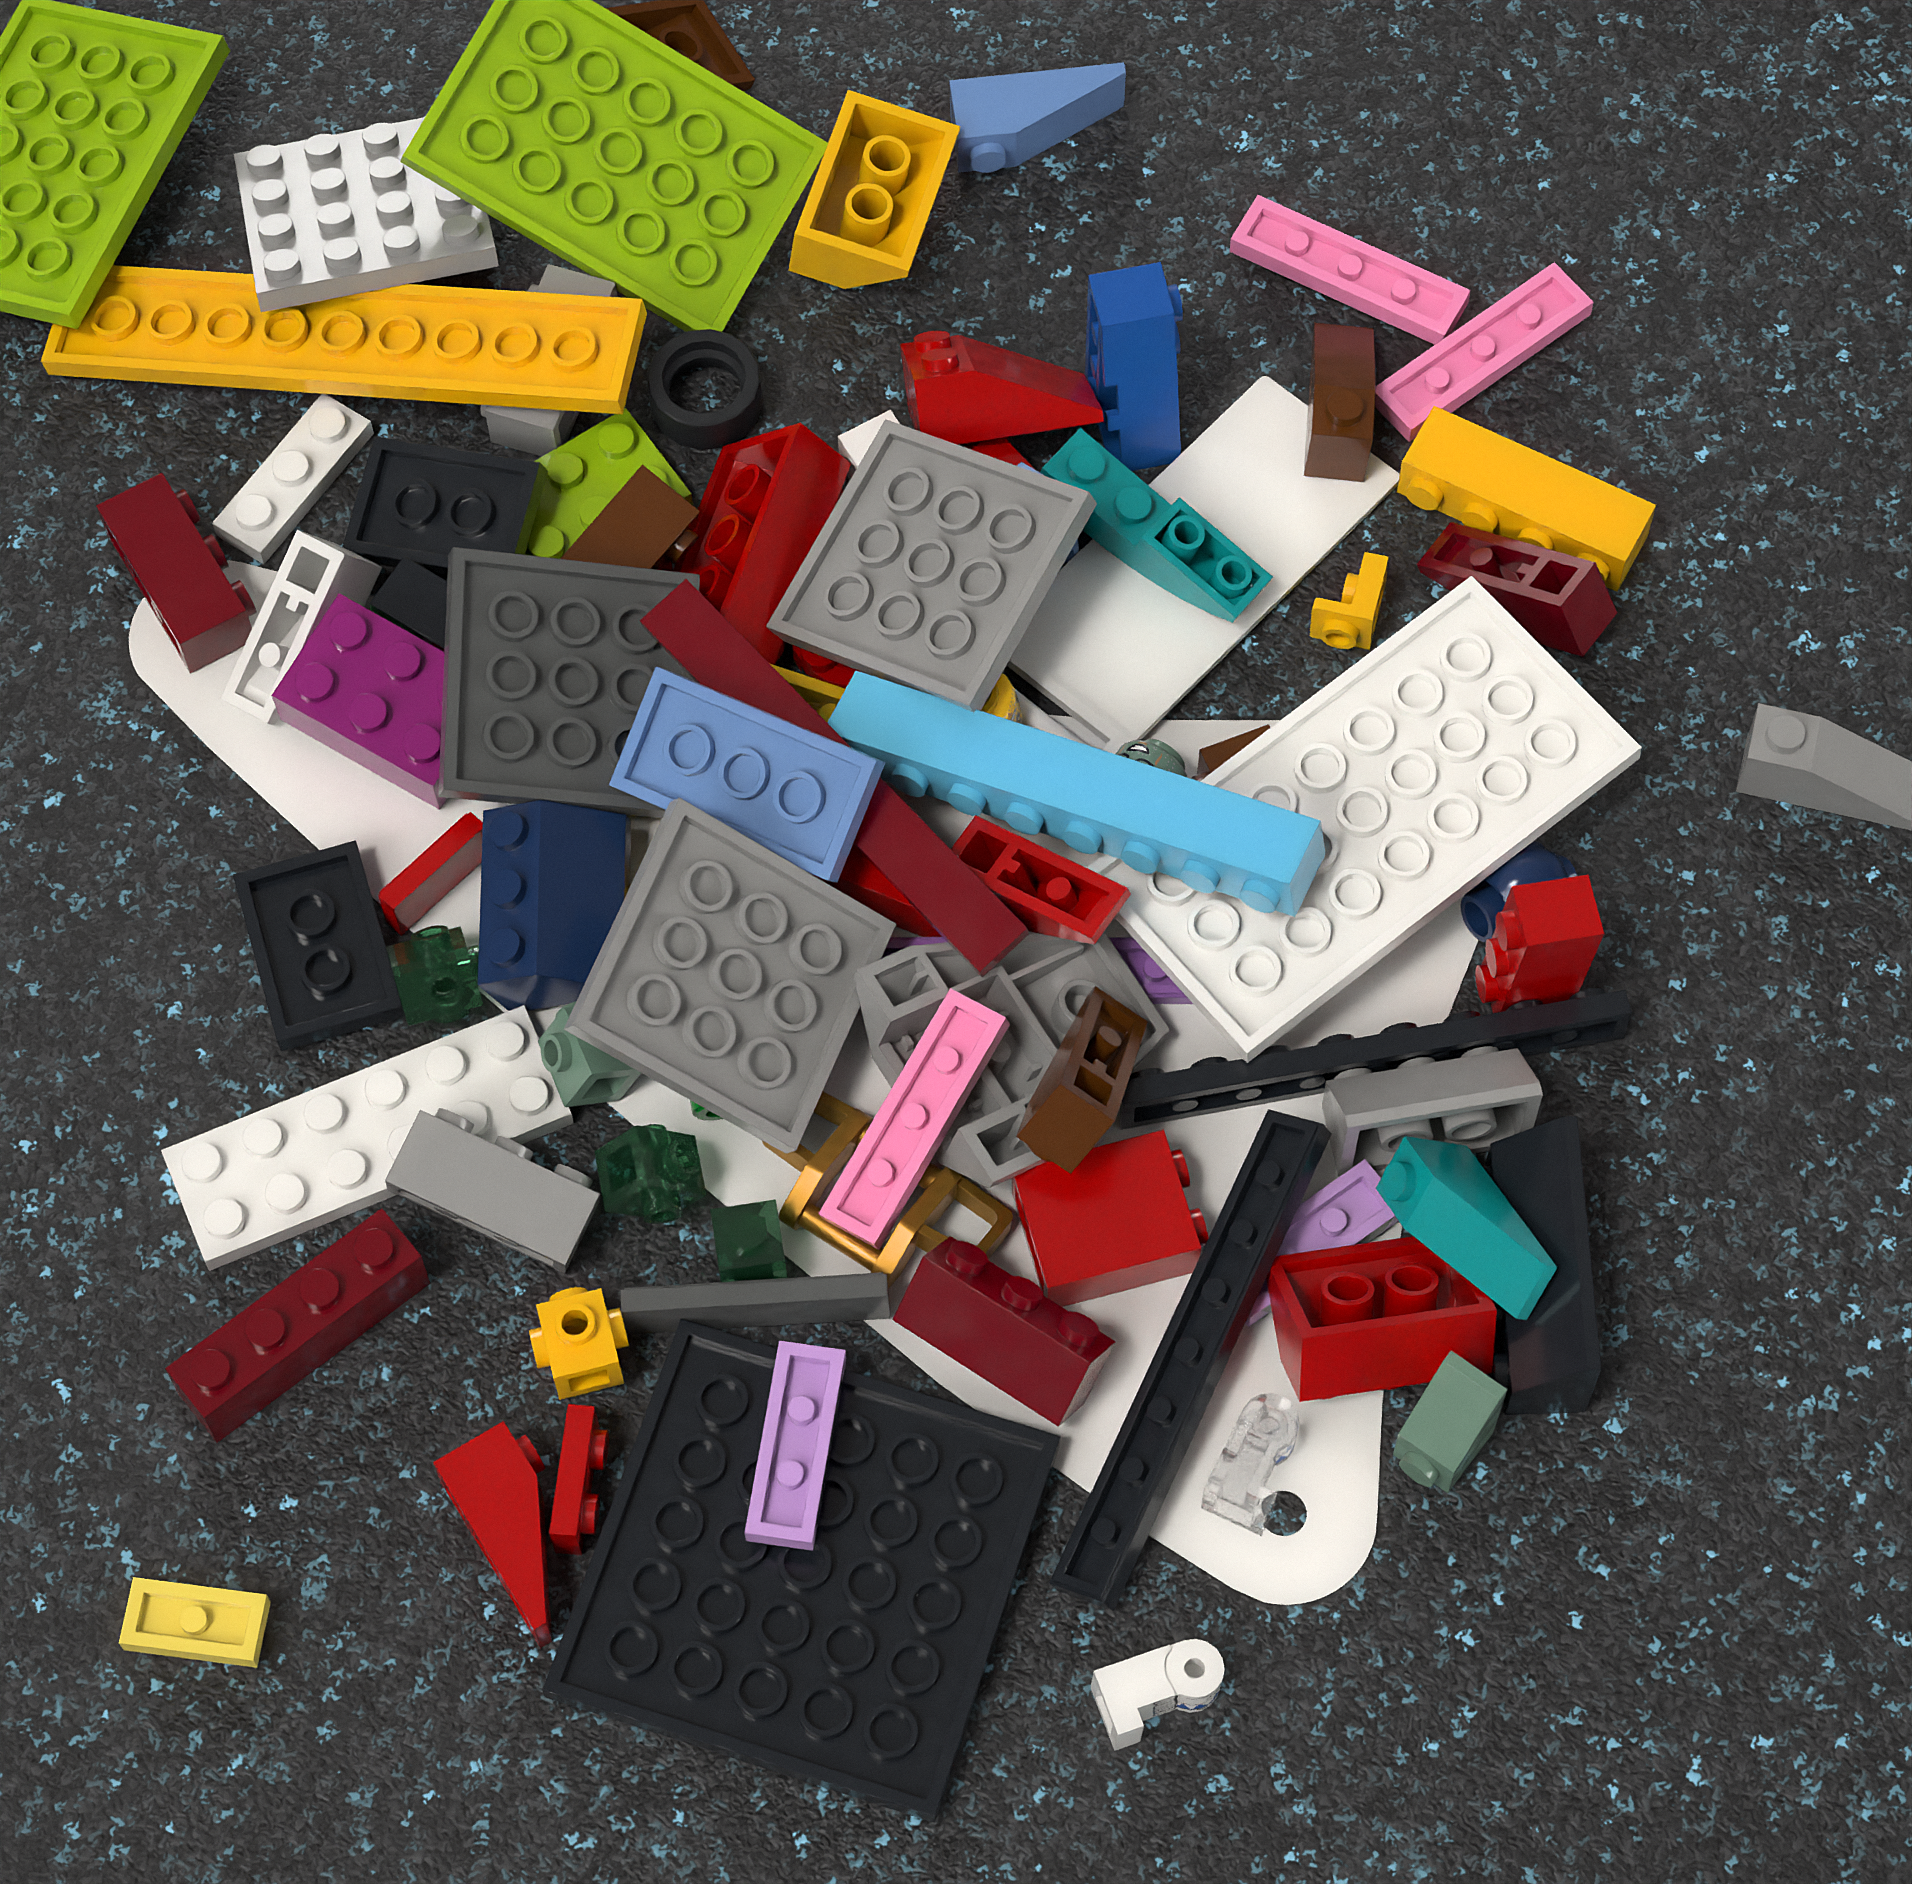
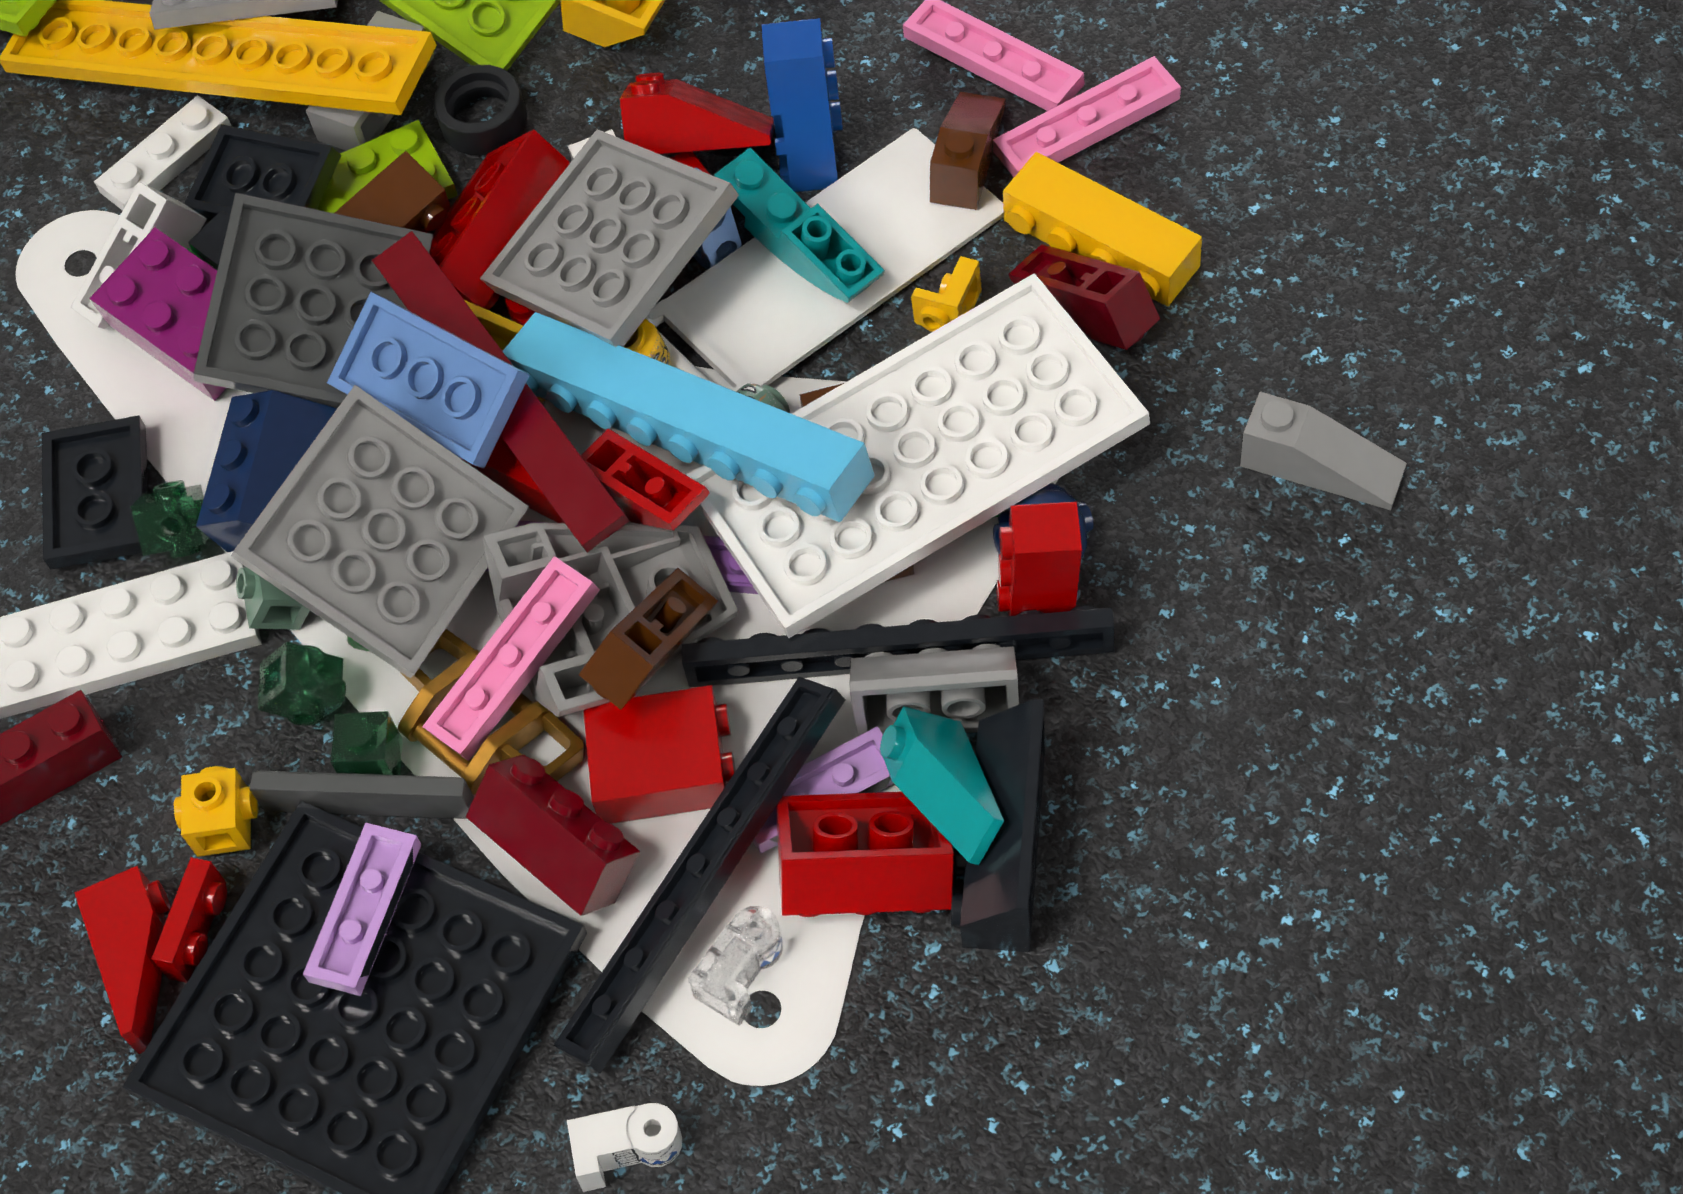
camera: 15 degrees right, 5 degrees down
(178, 571) = (57, 211): dark red brick -> none
(433, 874) = (187, 446): red tile -> none
(493, 1188) = (175, 684): light grey brick -> none
(1449, 1424) = (903, 947): sand green slope -> none

